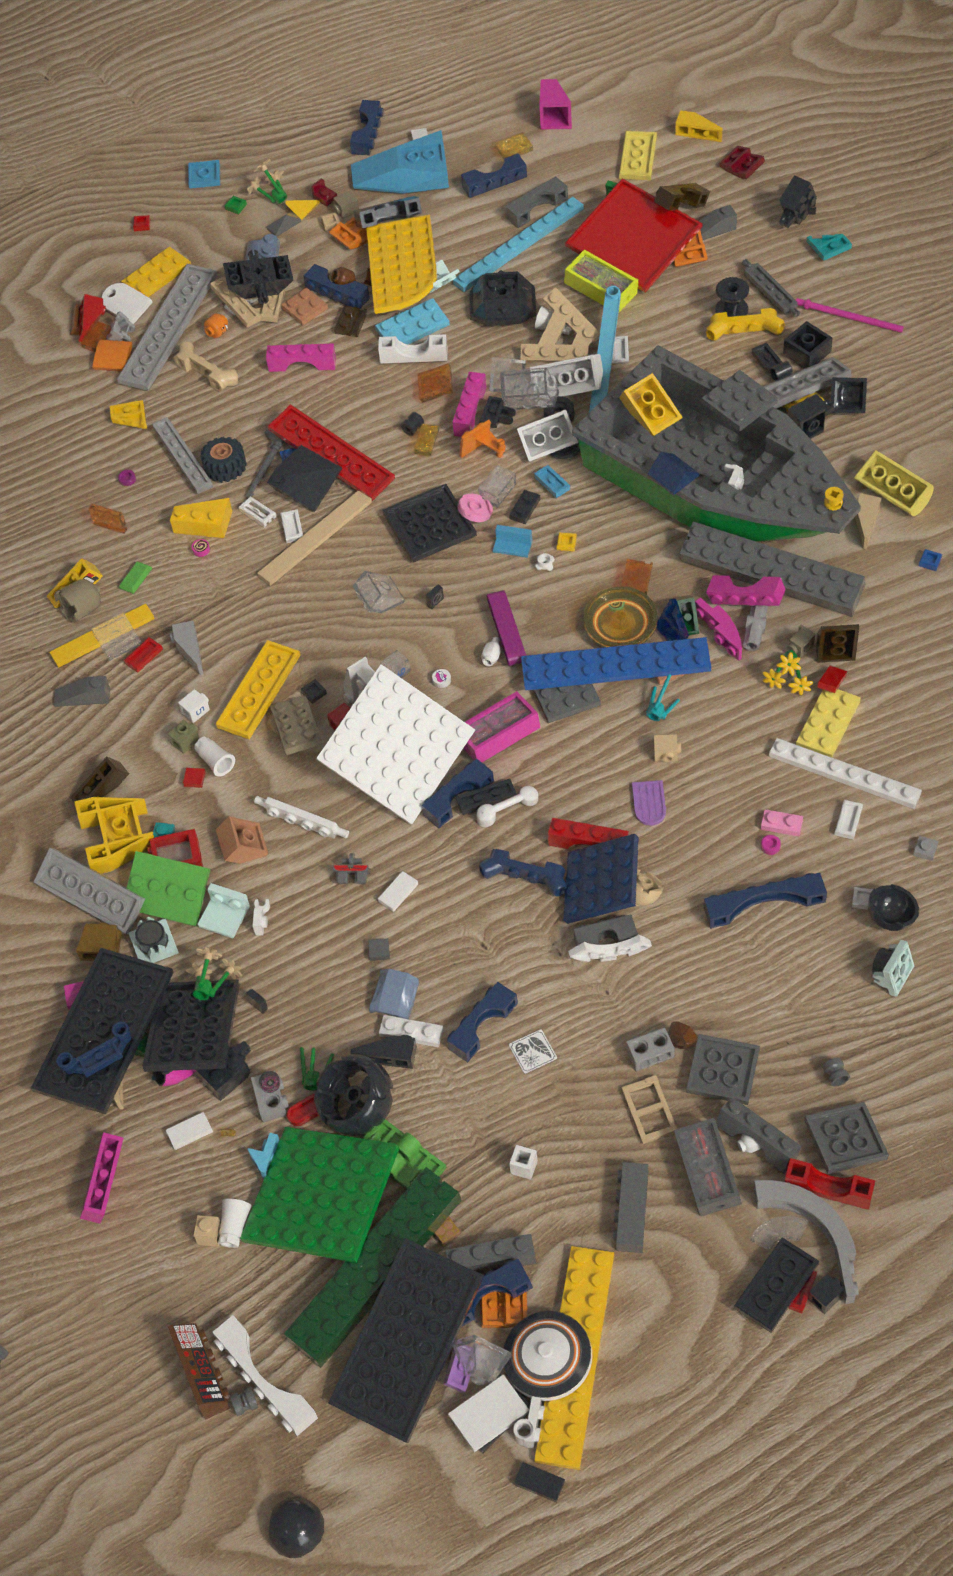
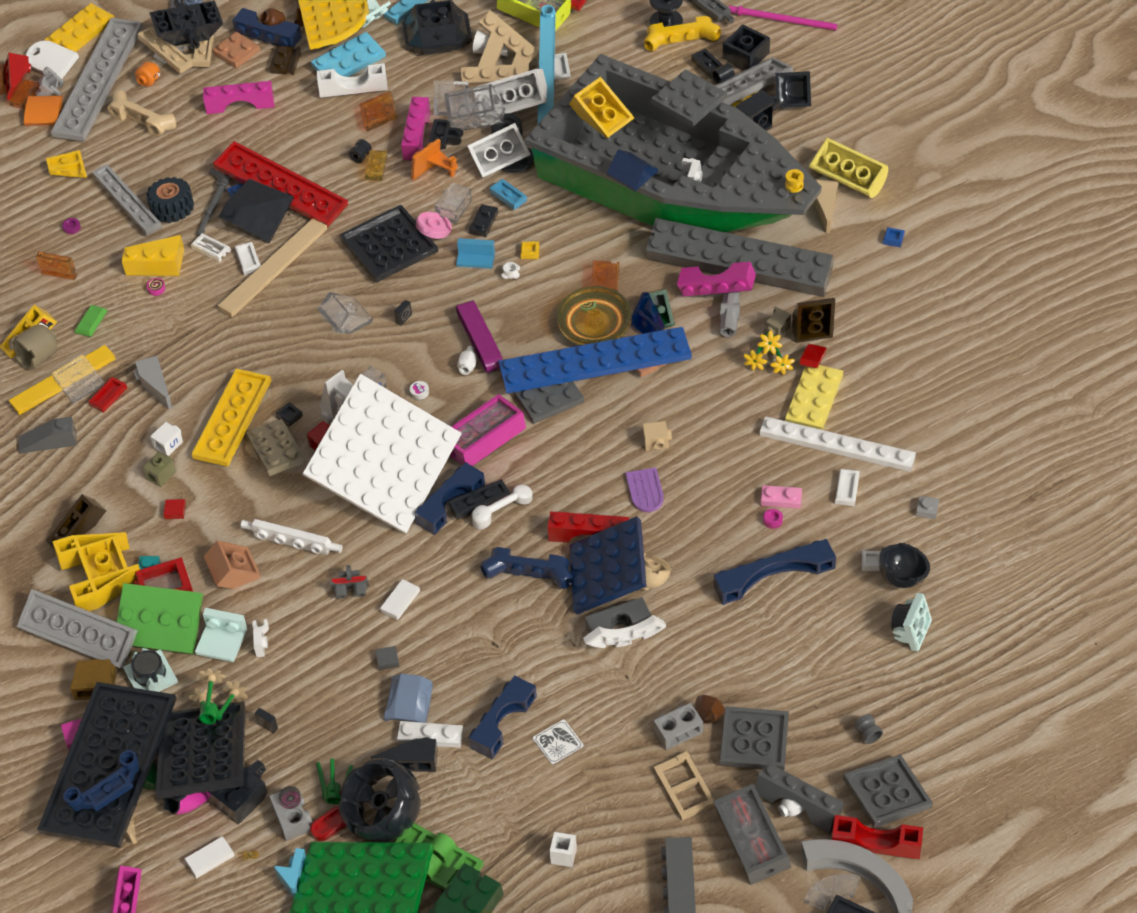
camera: 10 degrees left, 5 degrees down
(216, 757) = (195, 486): white plant -> none
(656, 709) = (641, 400): teal plant -> none
(724, 629) = (699, 317): dark pink slope -> none

